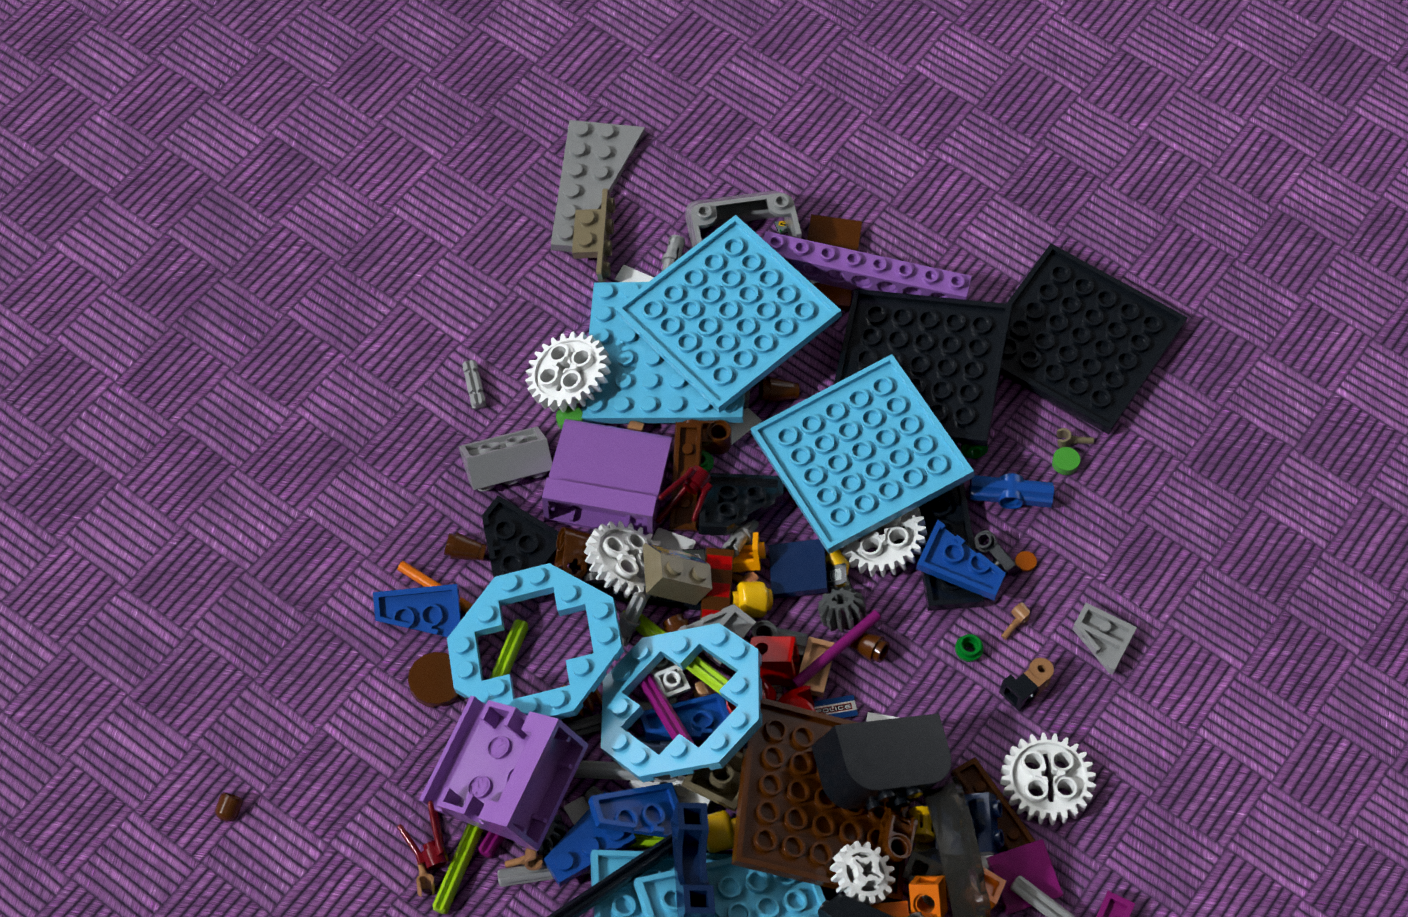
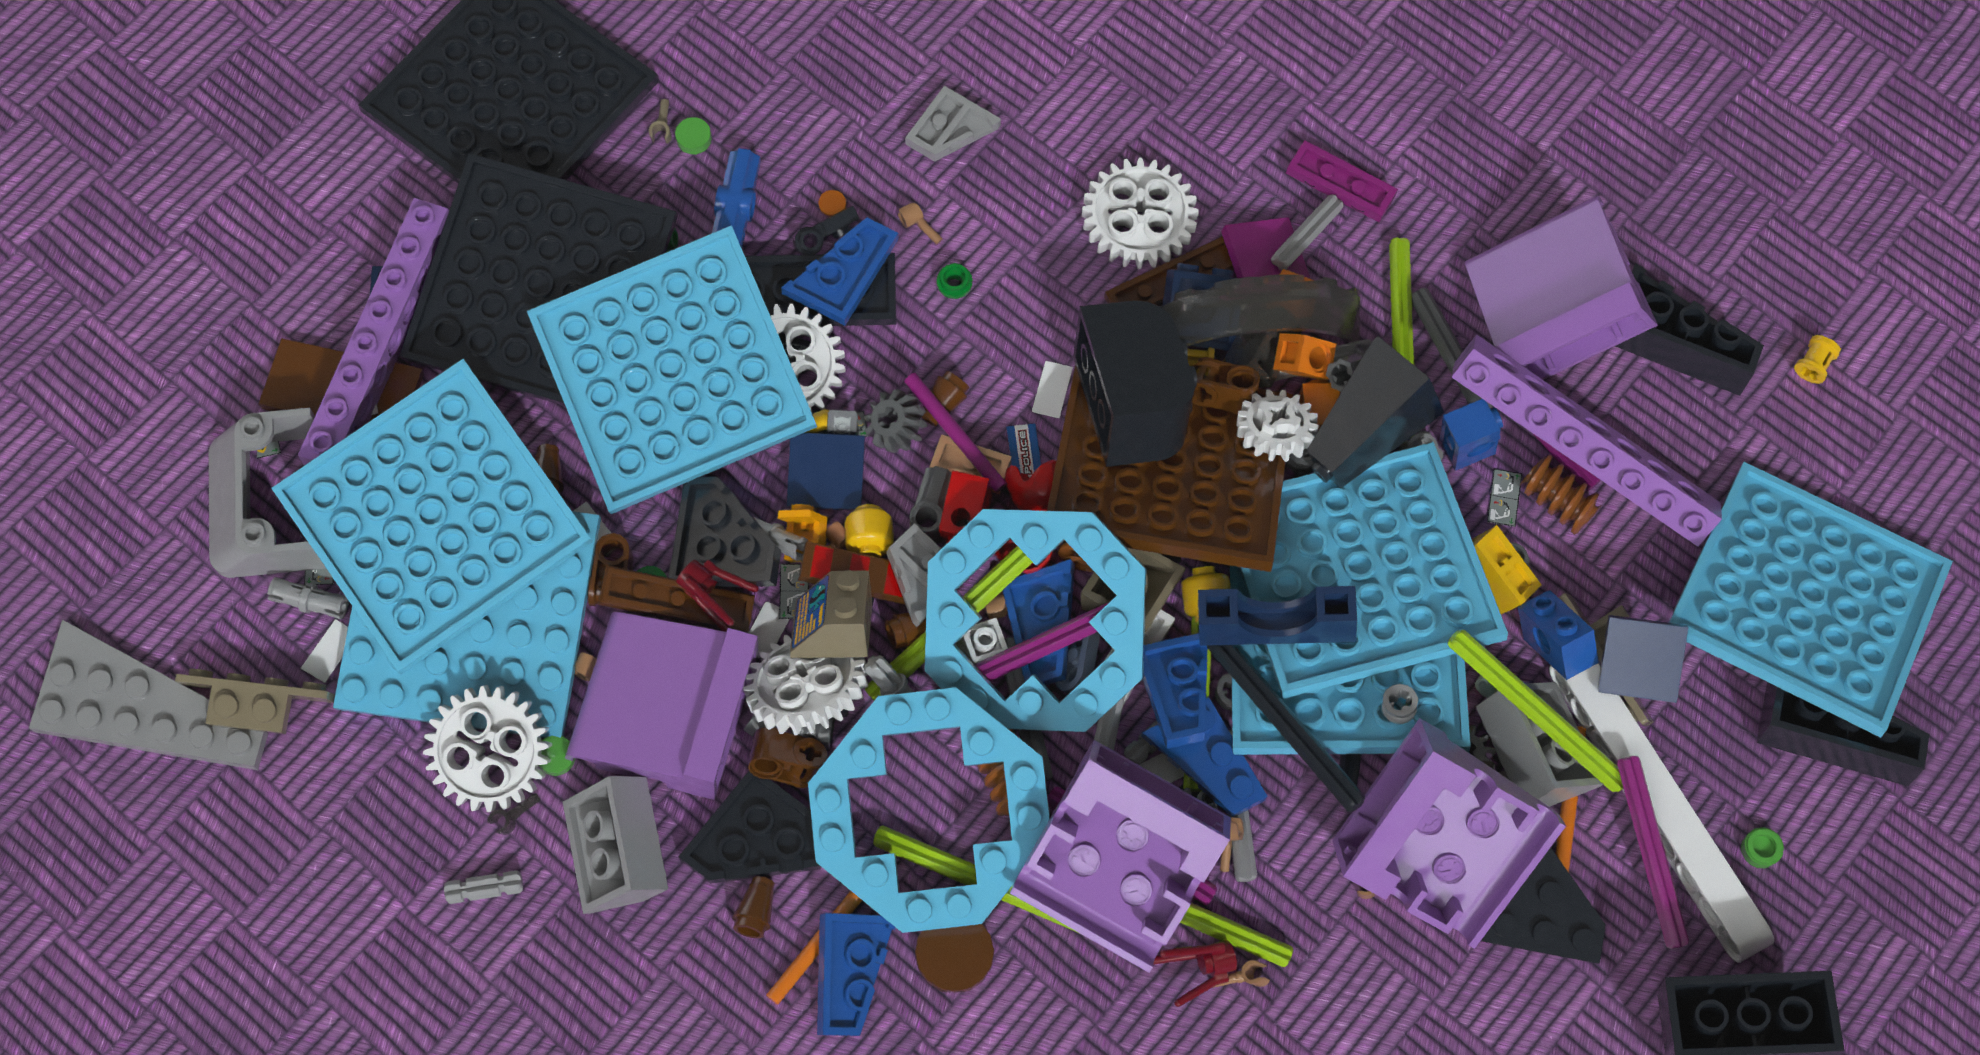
camera: 85 degrees left, 10 degrees up
(523, 395) = (512, 814): none -> clear smoke hand
(1029, 685) = (1011, 215): leg -> none

